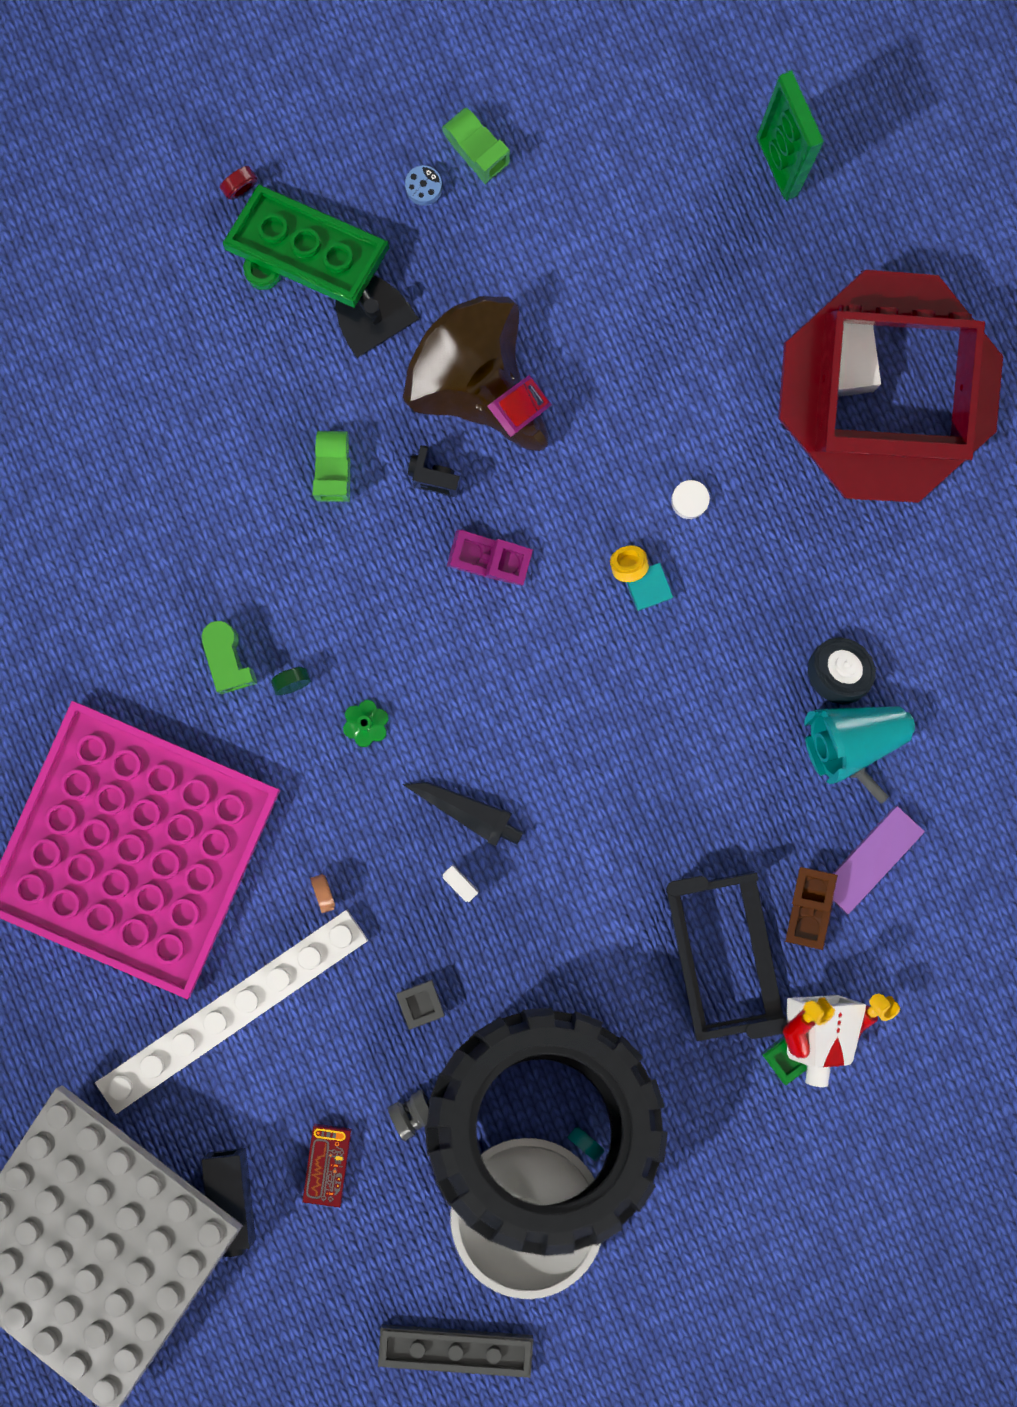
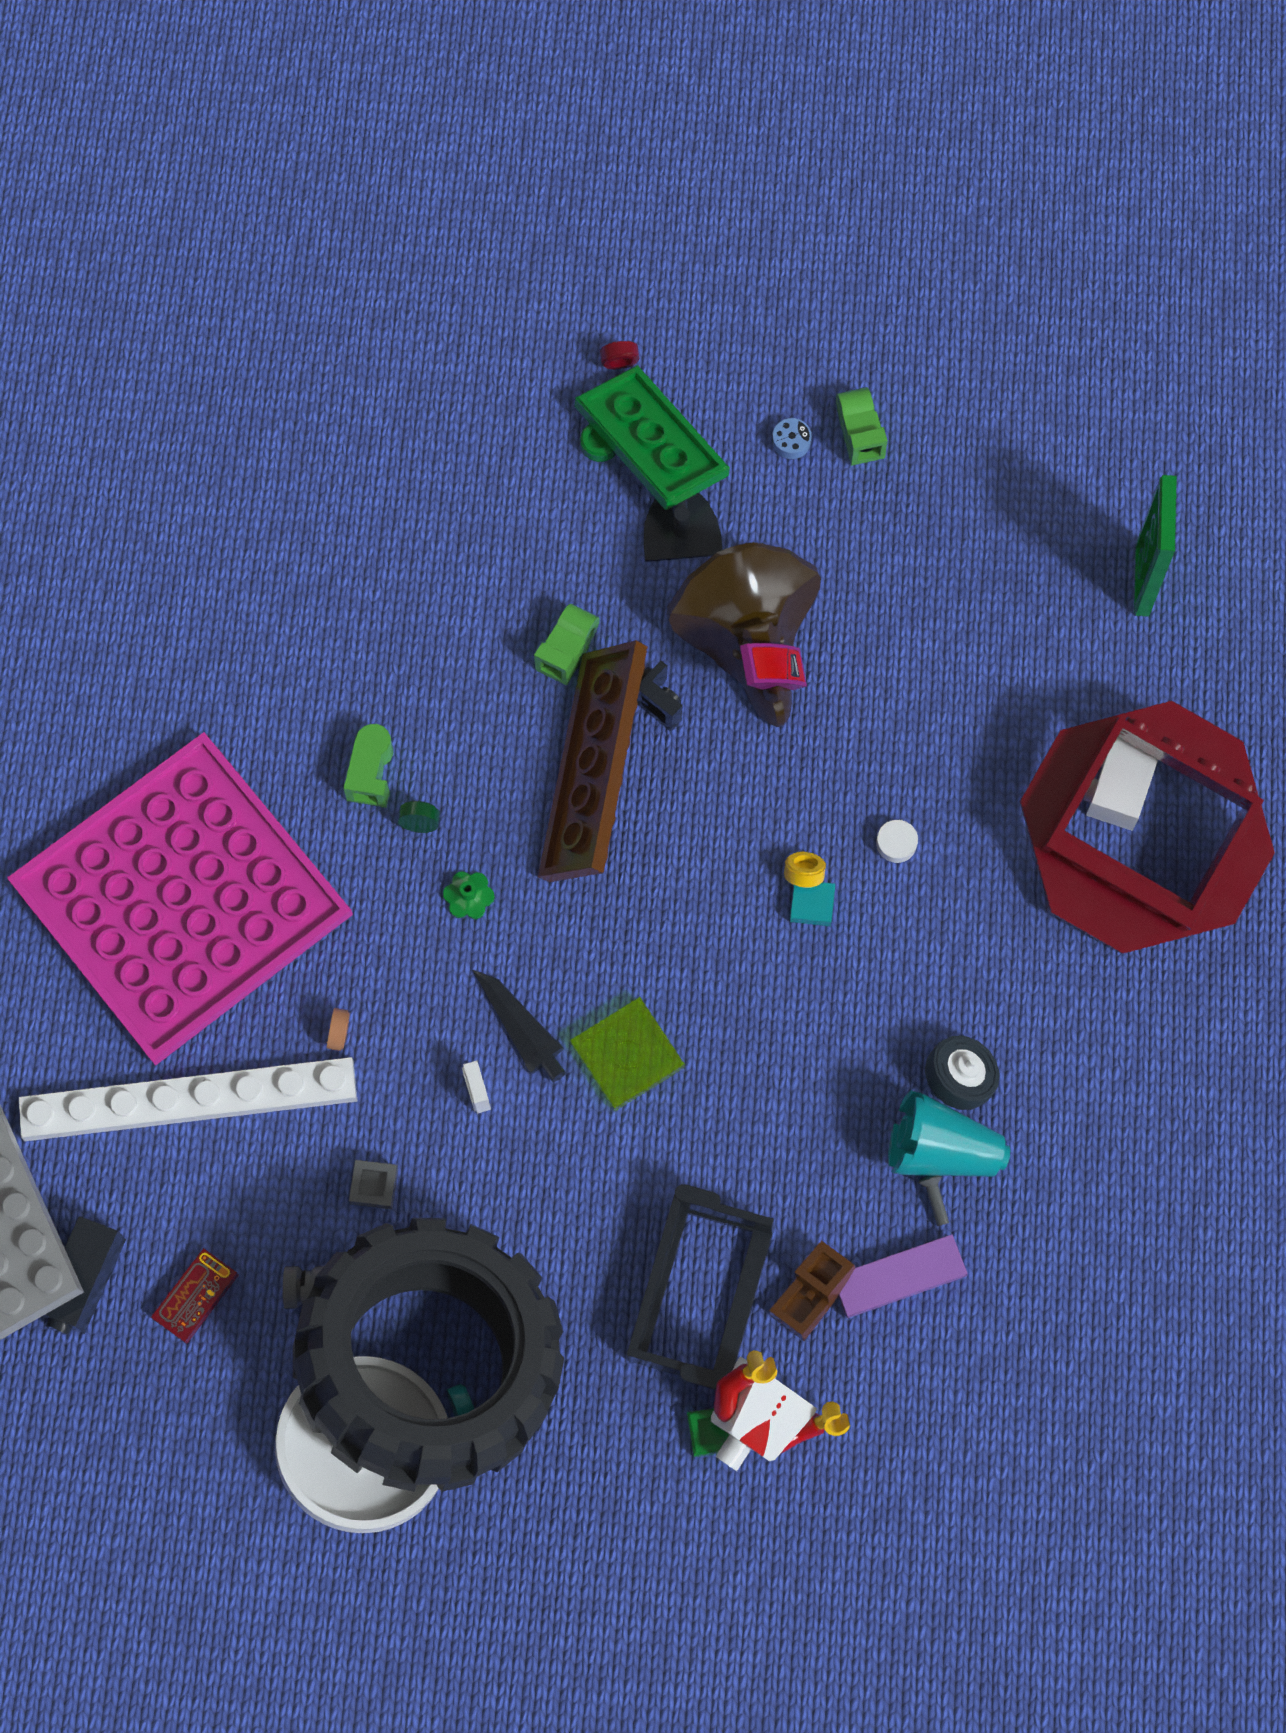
camera: 30 degrees right, 15 degrees down
(410, 561) = (593, 762): none -> reddish brown plate
(455, 1350) = (218, 1550): dark grey tile -> none
(489, 557) = (672, 800): magenta slope -> none
(564, 790) = (627, 1054): none -> clear neon green tile

